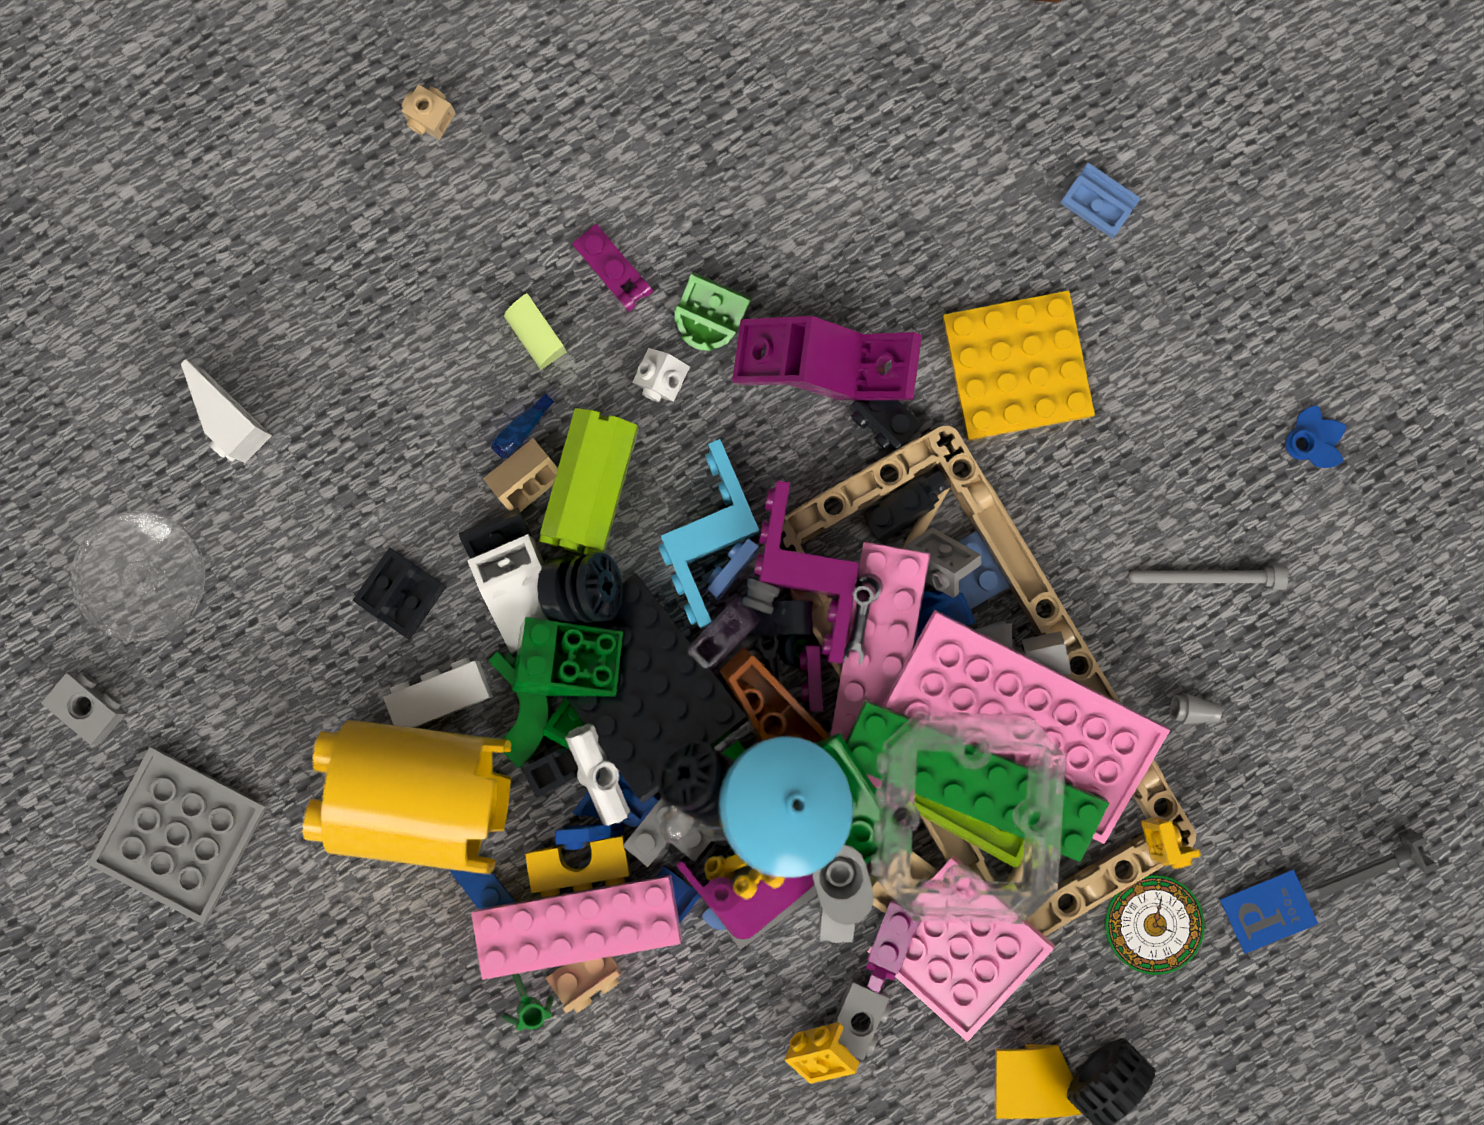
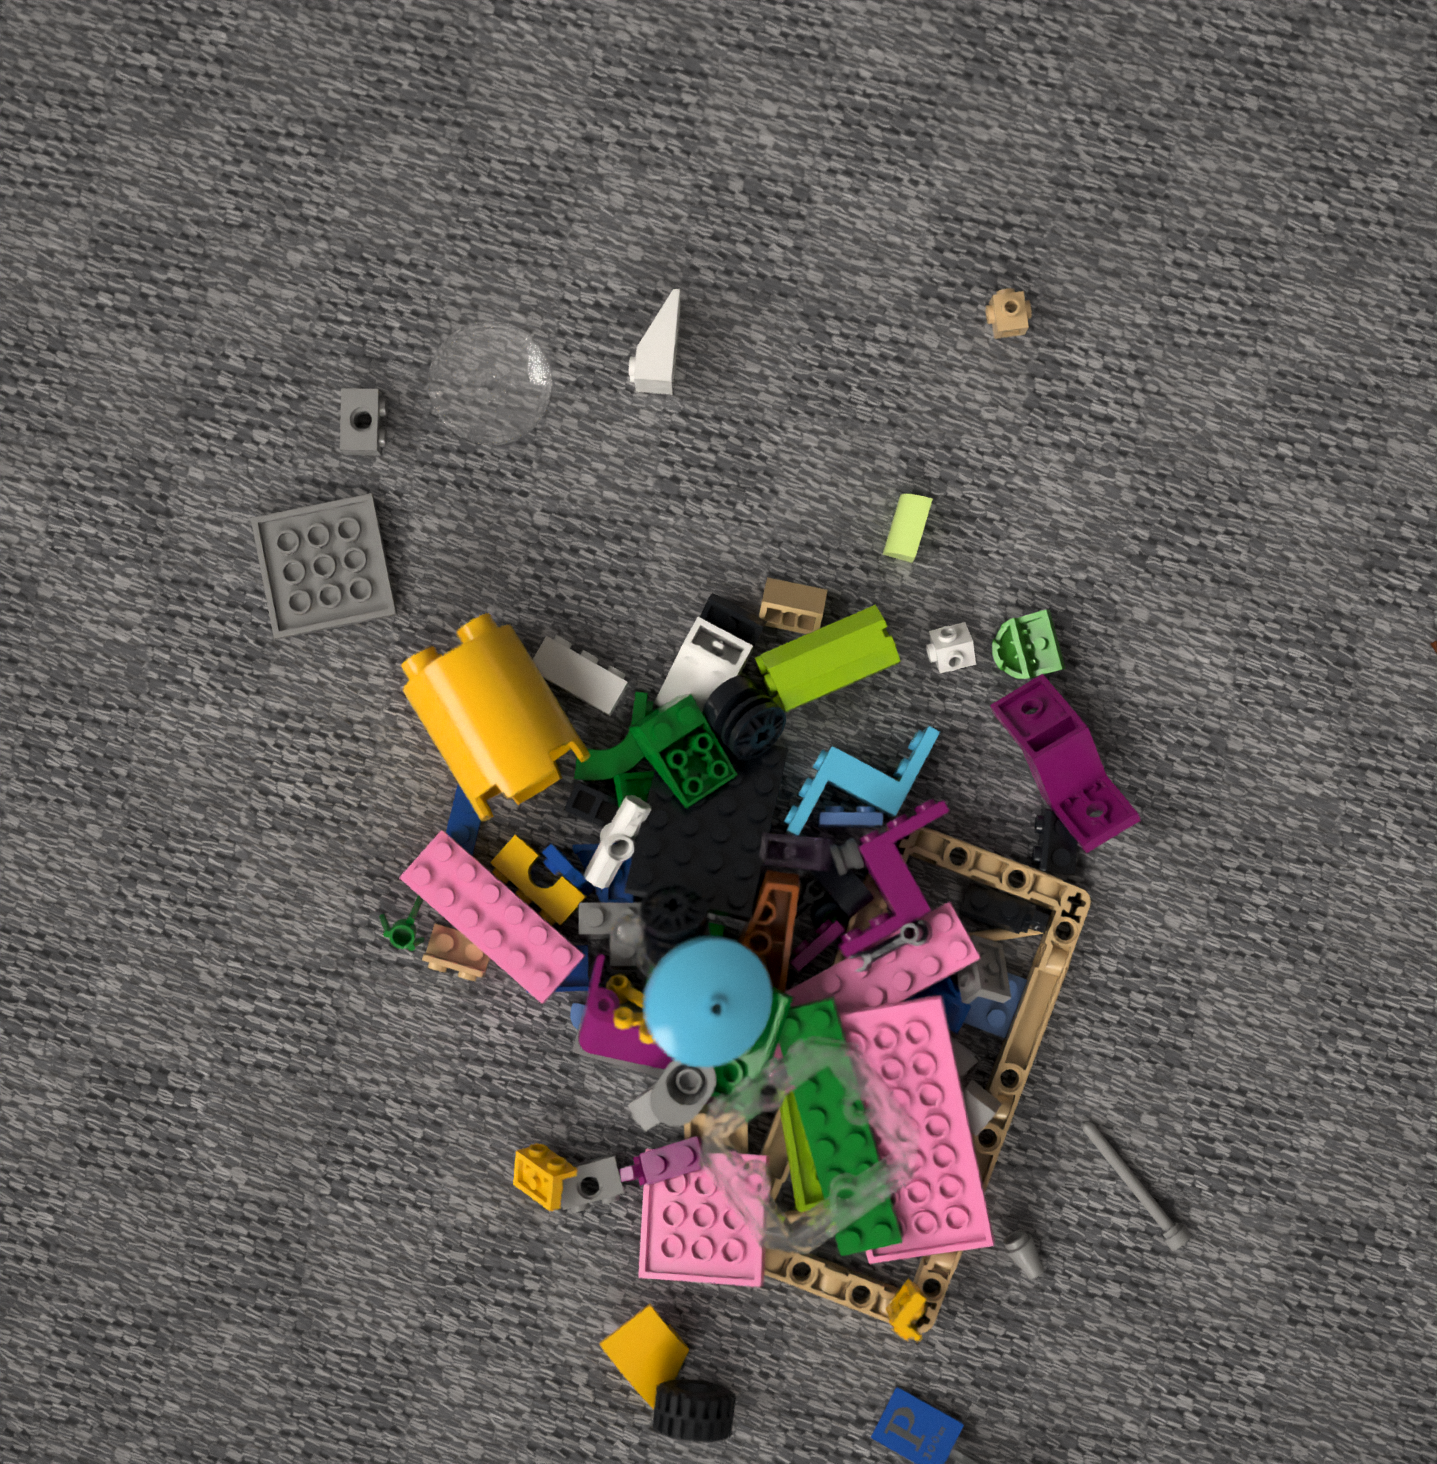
camera: 50 degrees right, 0 degrees up
(399, 593) = (631, 584): black slope -> none
(516, 432) = (823, 574): clear blue piece -> none
(611, 266) = (1003, 544): magenta plate -> none
(1018, 365) = (1178, 911): yellow plate -> none
(1100, 200) = (1355, 873): medium blue plate -> none
(1154, 925) = (837, 1351): tile -> none
(1319, 438) = (1309, 1186): blue plate -> none

